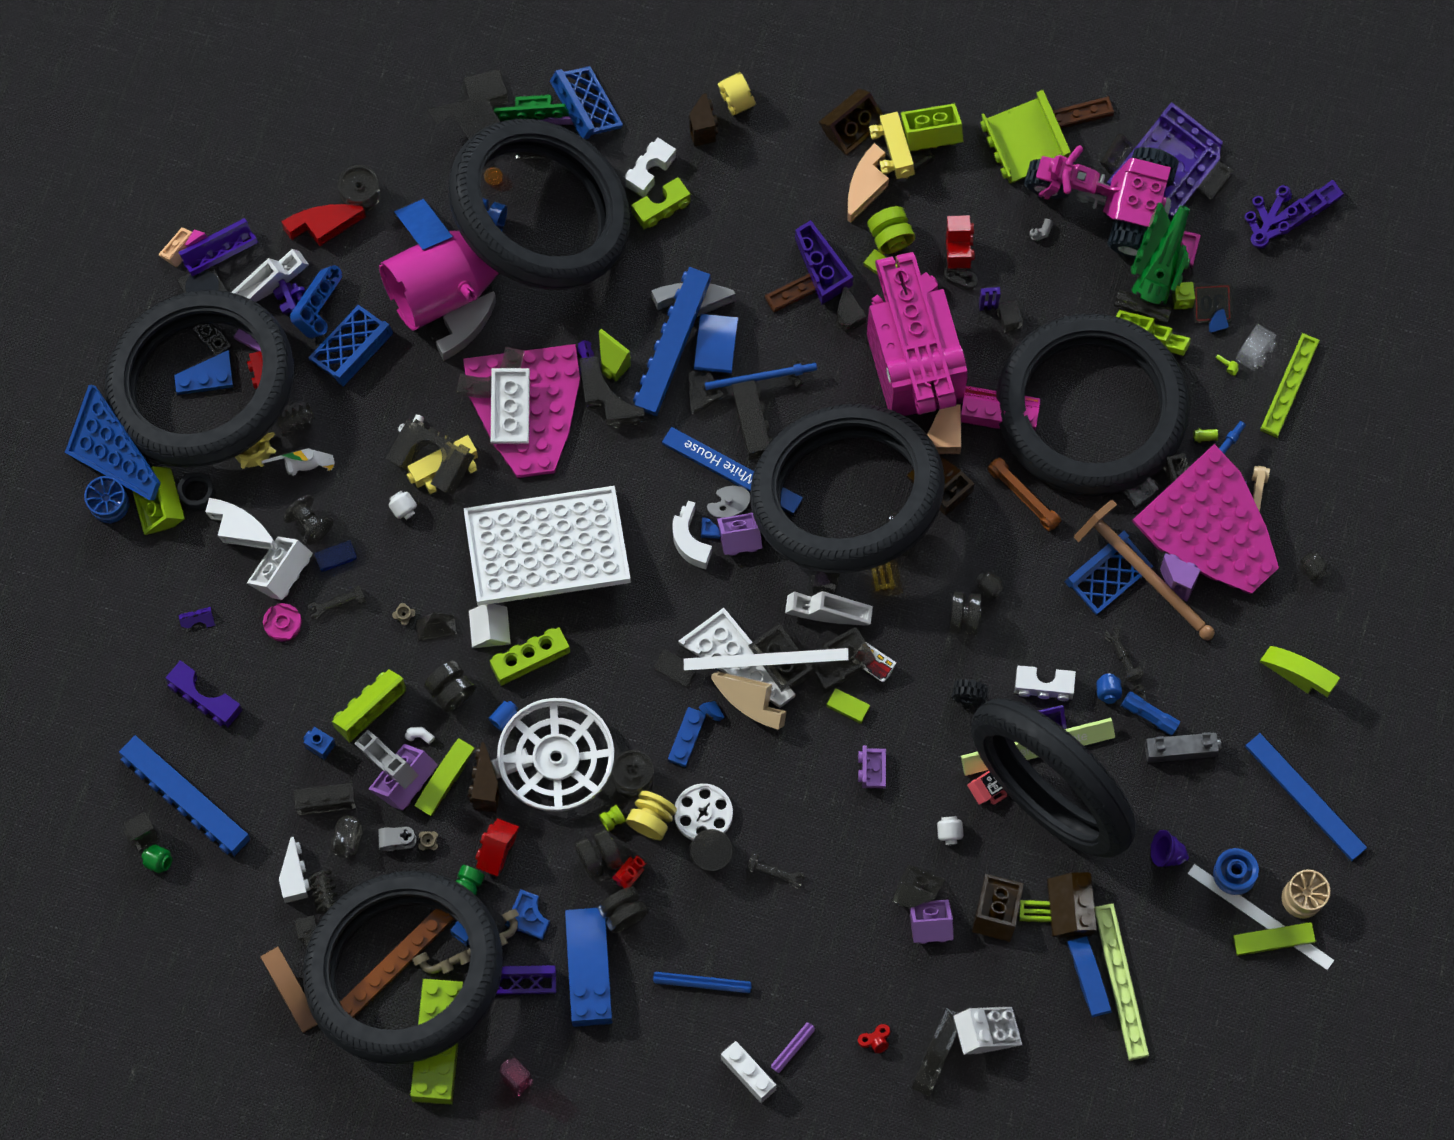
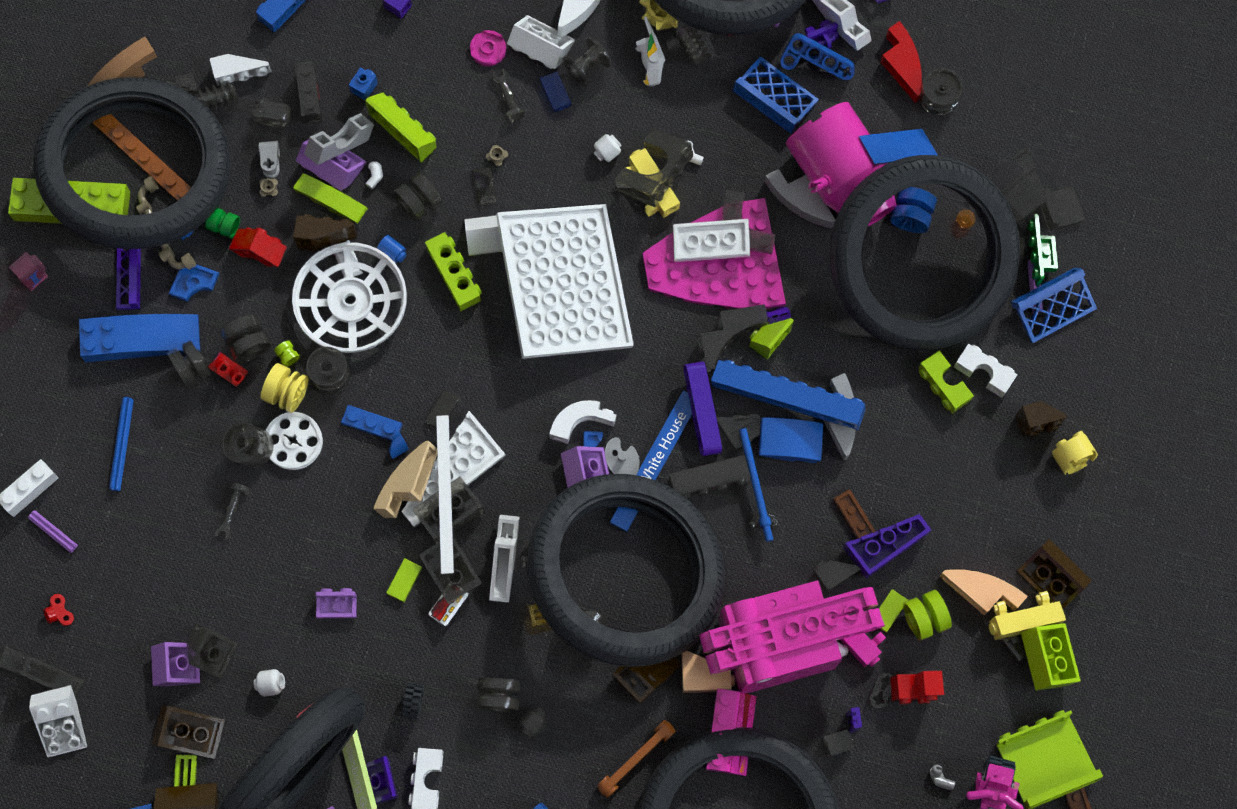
camera: 85 degrees right, 5 degrees up
(682, 422) = (702, 408): none -> dark purple beam

